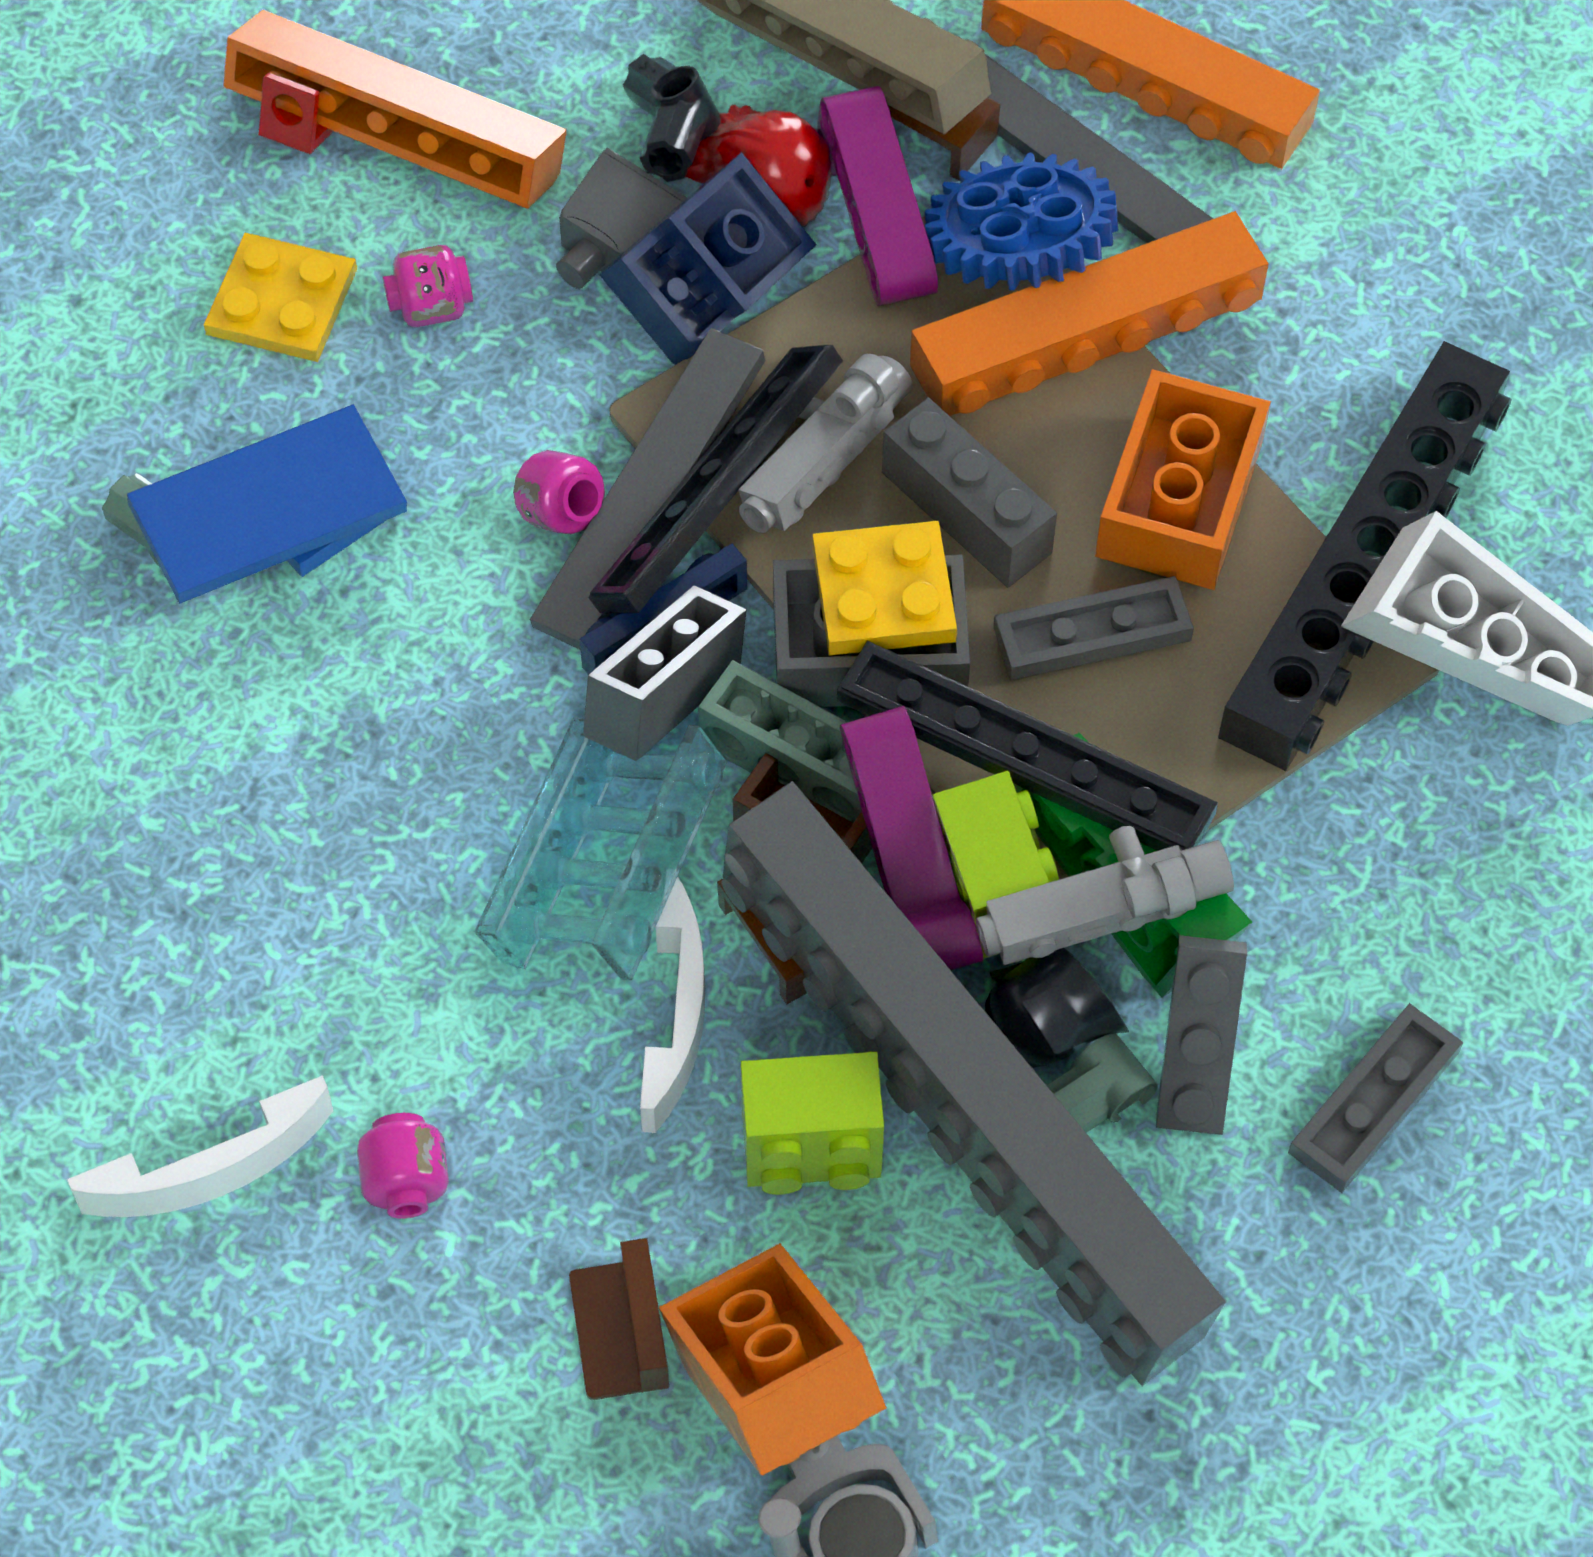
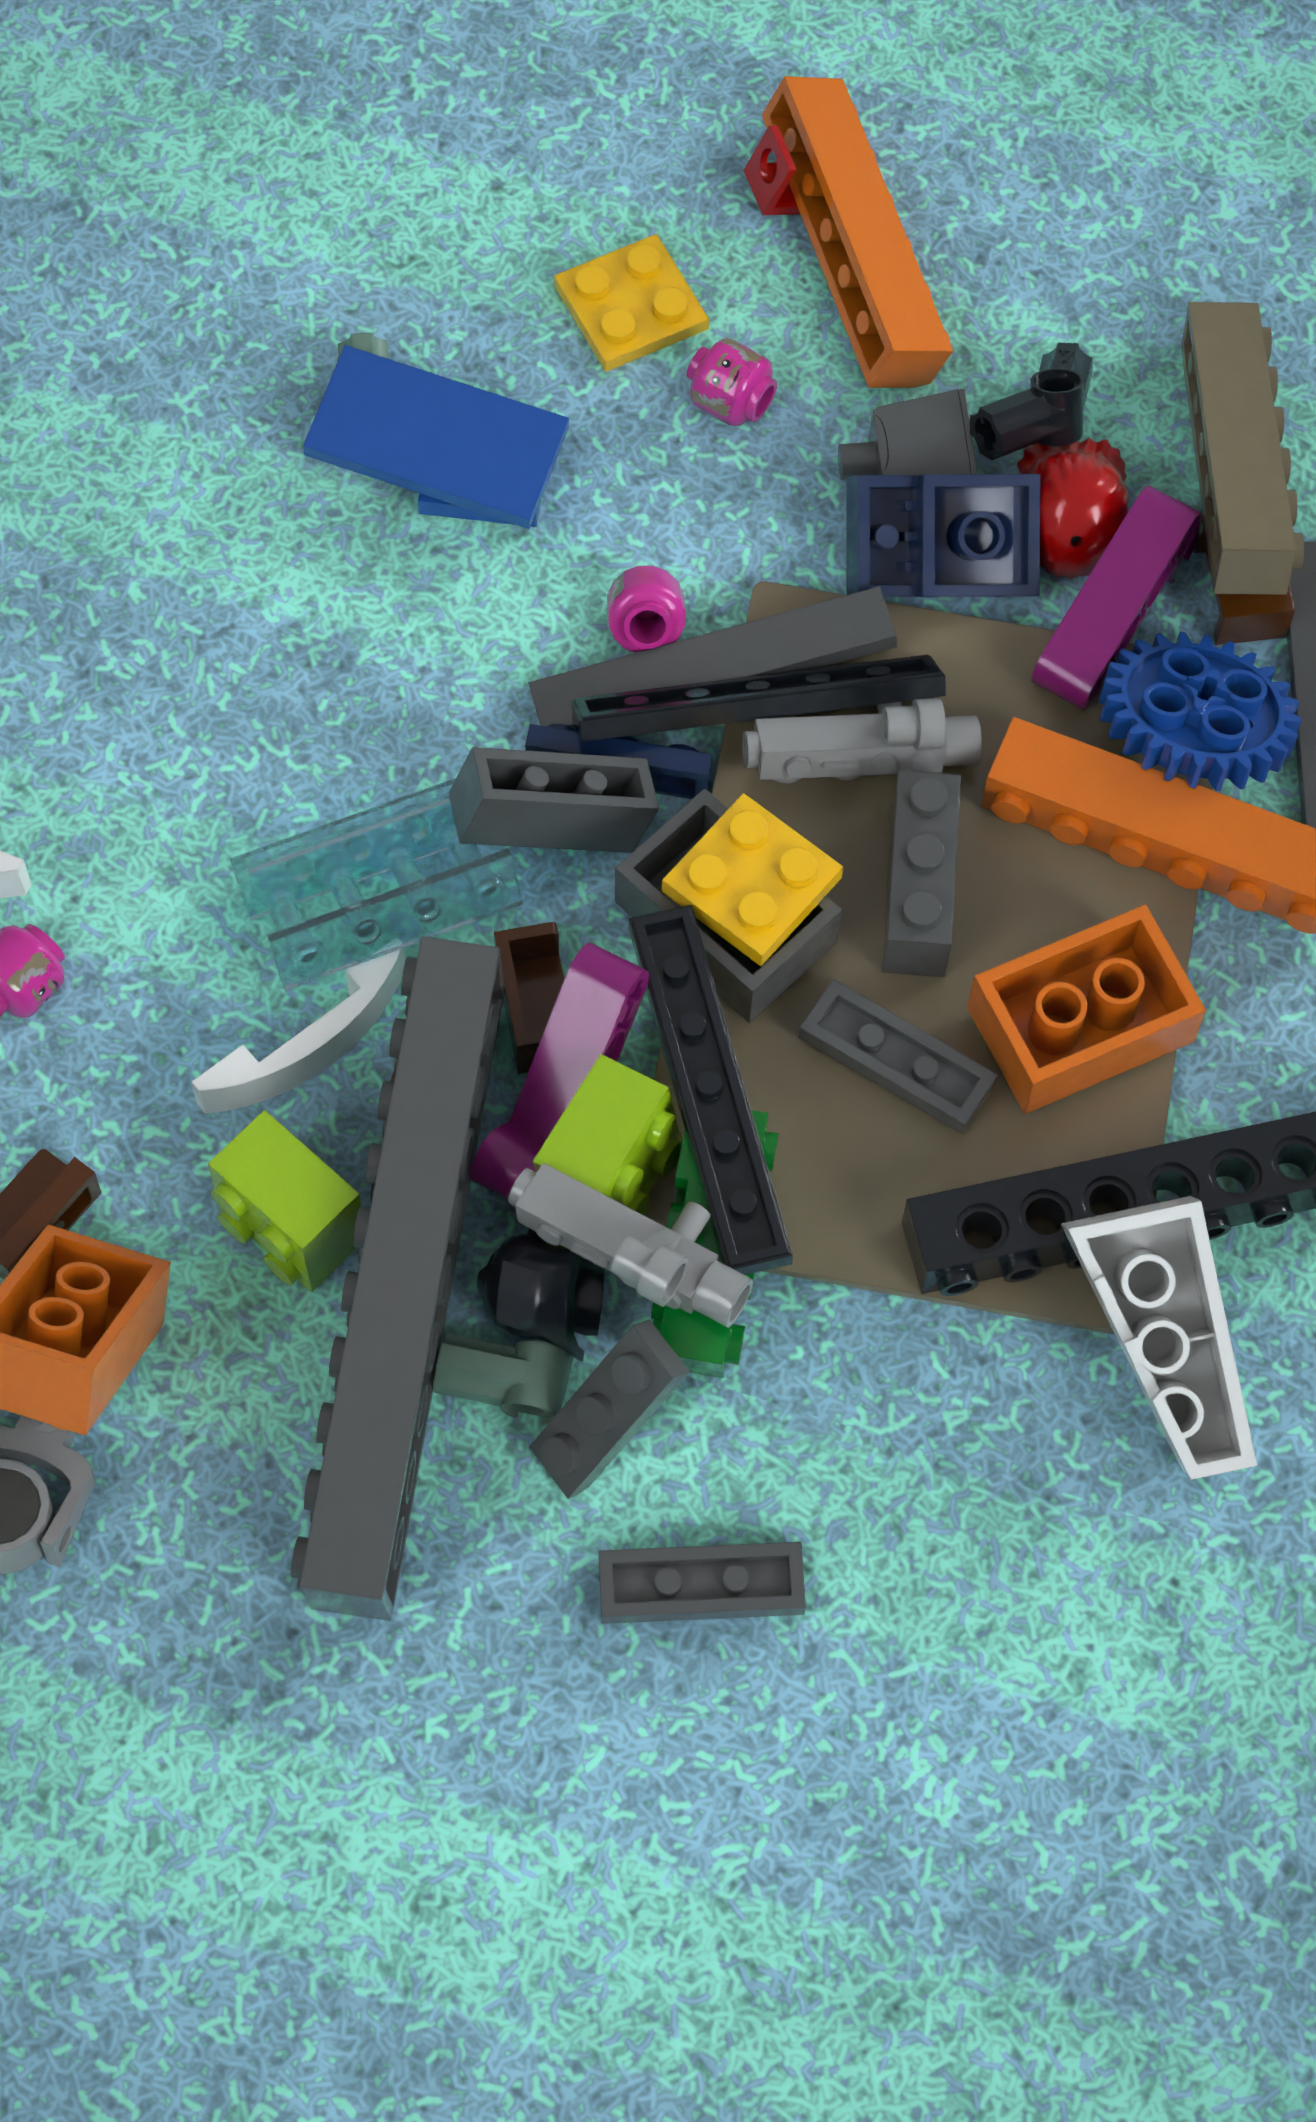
camera: 45 degrees right, 5 degrees up
(755, 716) = (584, 900): sand green brick -> none

